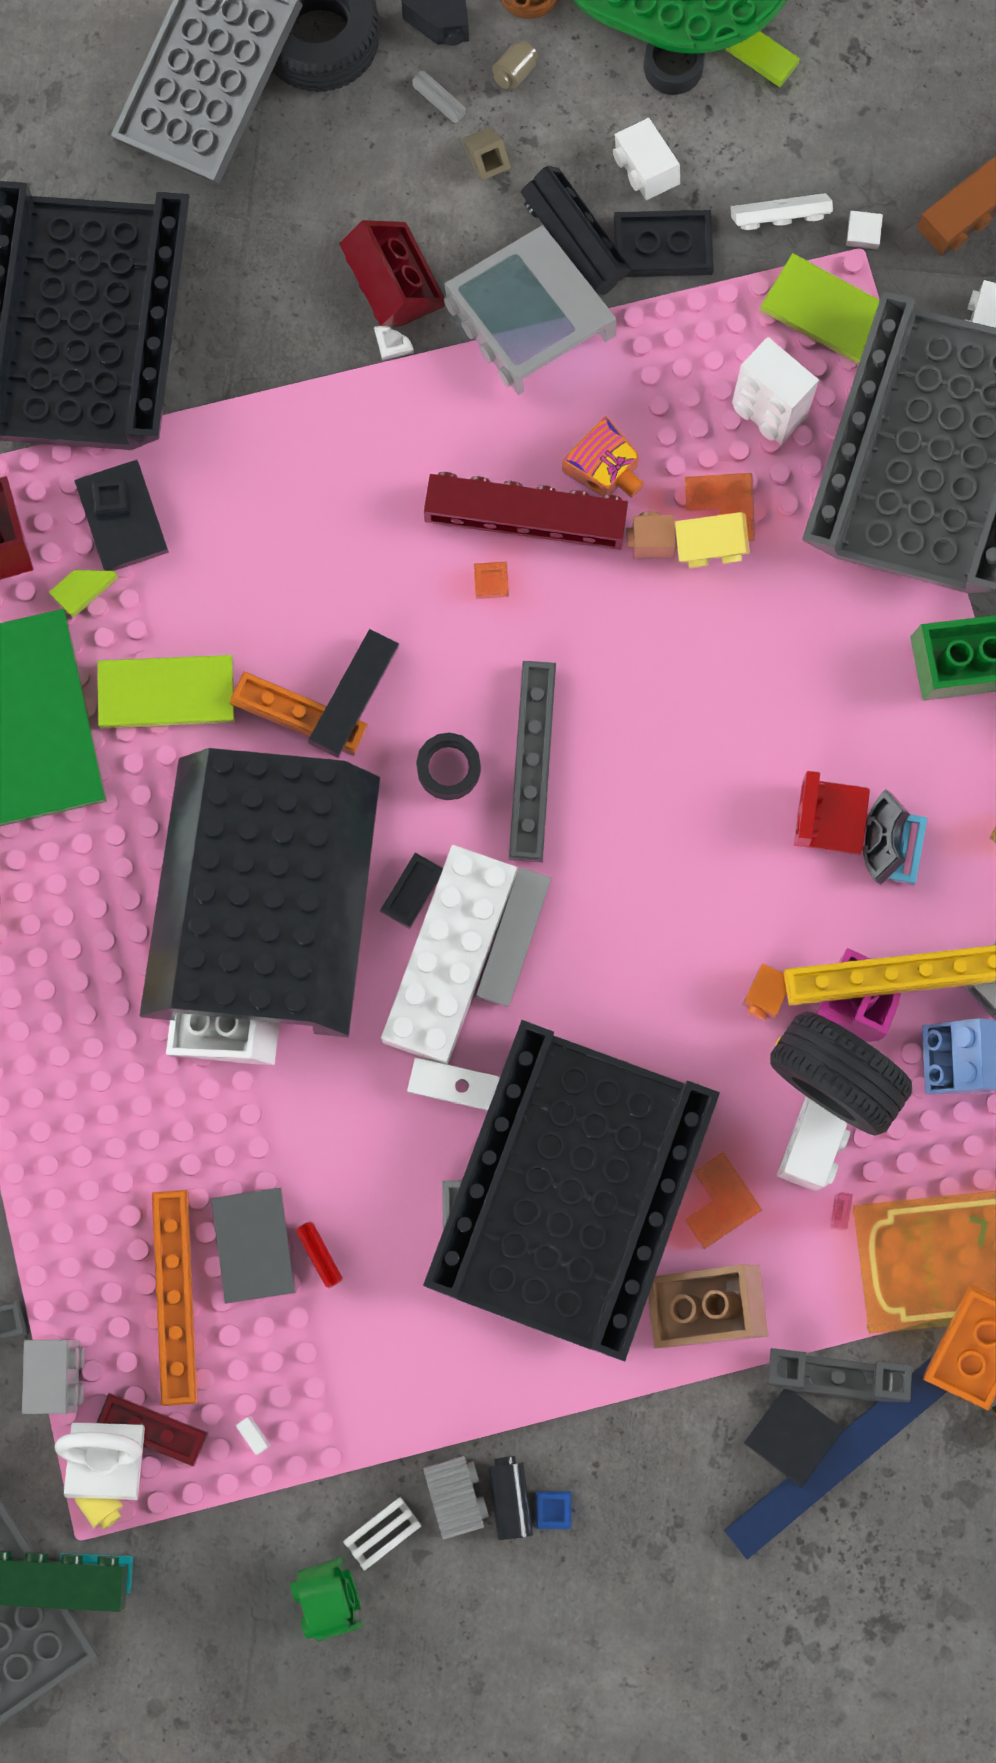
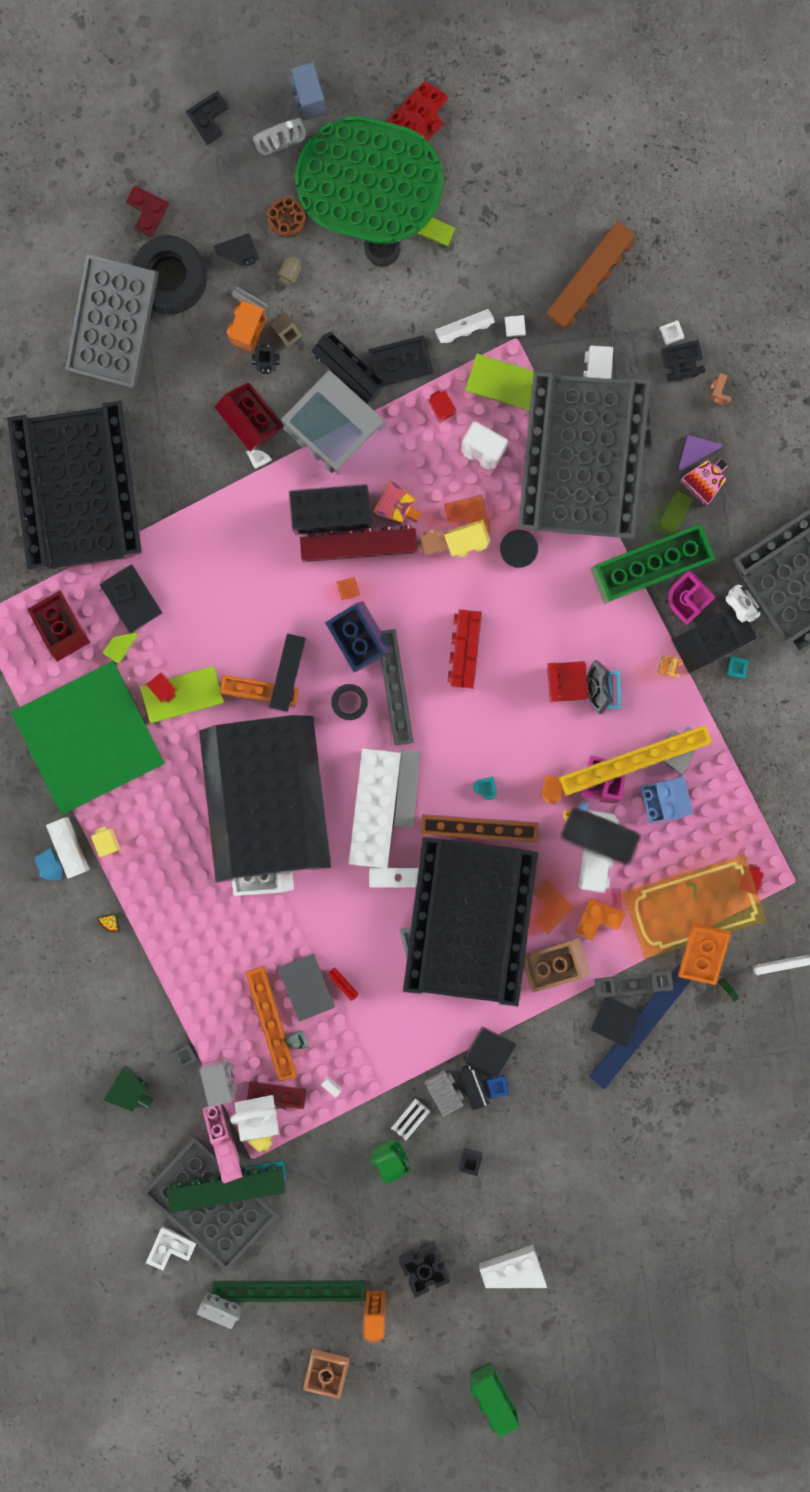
camera: 15 degrees left, 10 degrees up
(32, 1494) = (223, 1143): none -> bright pink slope
(135, 668) = (162, 688): none -> red brick
(212, 1338) = (296, 1040): none -> tile
(412, 890) = (345, 775): black tile -> none
(424, 129) = (246, 326): none -> orange brick
(442, 187) = (262, 353): none -> black brick
(472, 1636) = (470, 1161): none -> black brick
(490, 657) = (358, 636): none -> dark blue brick
(492, 436) = (330, 509): none -> black brick
(553, 1440) = (489, 1051): none -> black tile
(624, 1030) = (479, 828): none -> dark orange brick
(647, 159) = (379, 313): white brick -> none
(651, 966) = (486, 788): none -> teal tile
(668, 721) = (466, 649): none -> red brick
(716, 321) = (441, 405): none -> red brick
(795, 579) = (519, 548): none -> black tile
(799, 1232) = (597, 913): none -> orange plate

